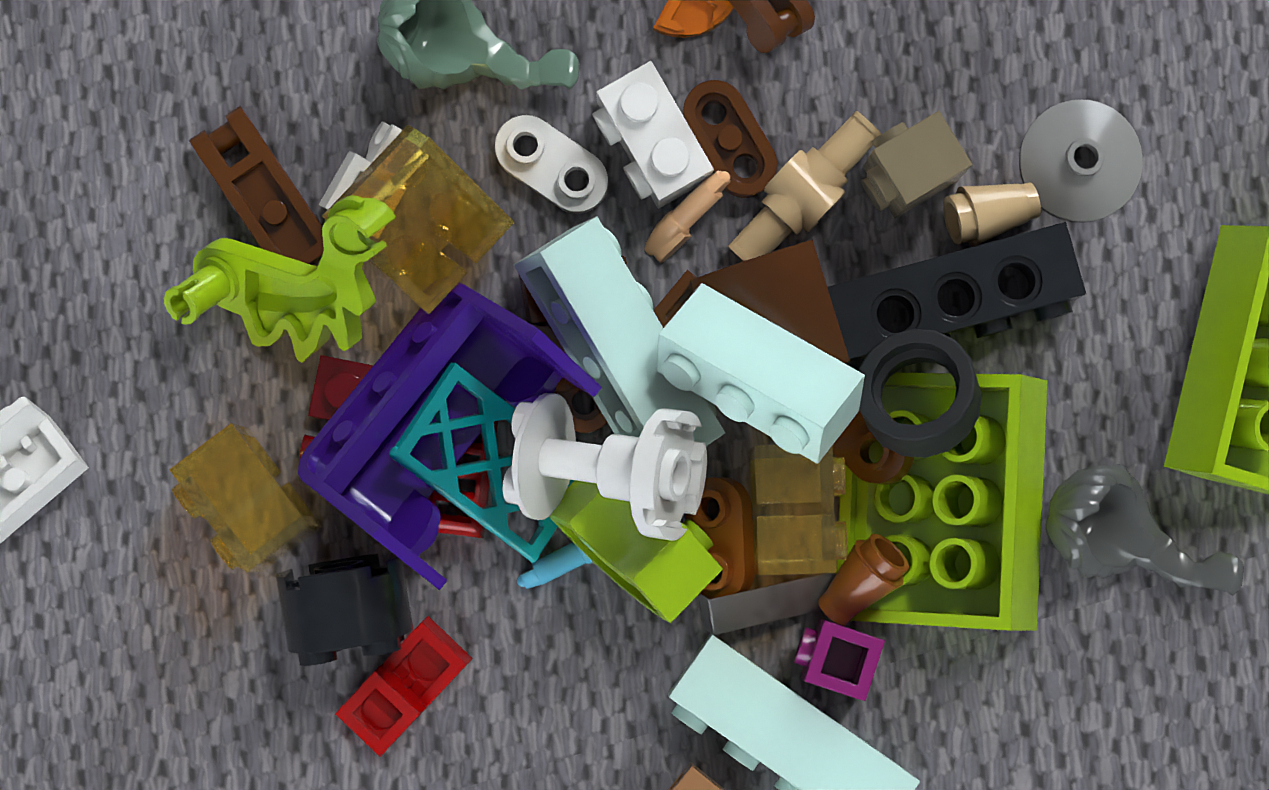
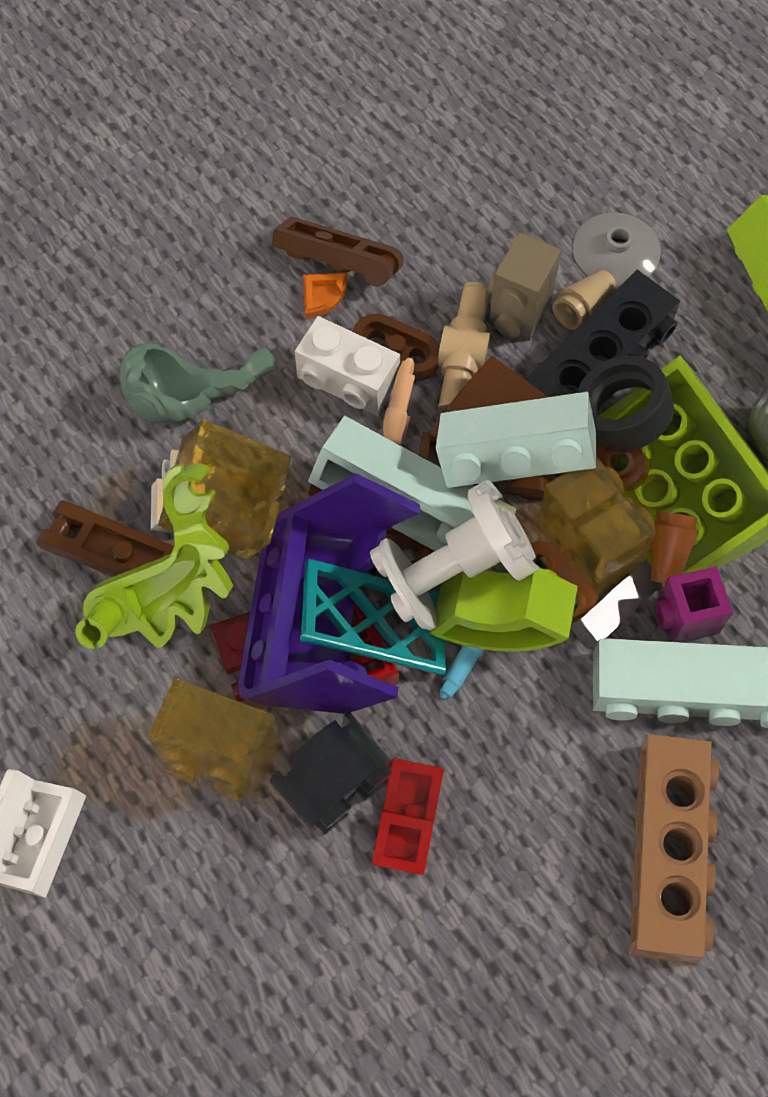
camera: 30 degrees left, 20 degrees down
(550, 164) = (291, 427): white plate -> none

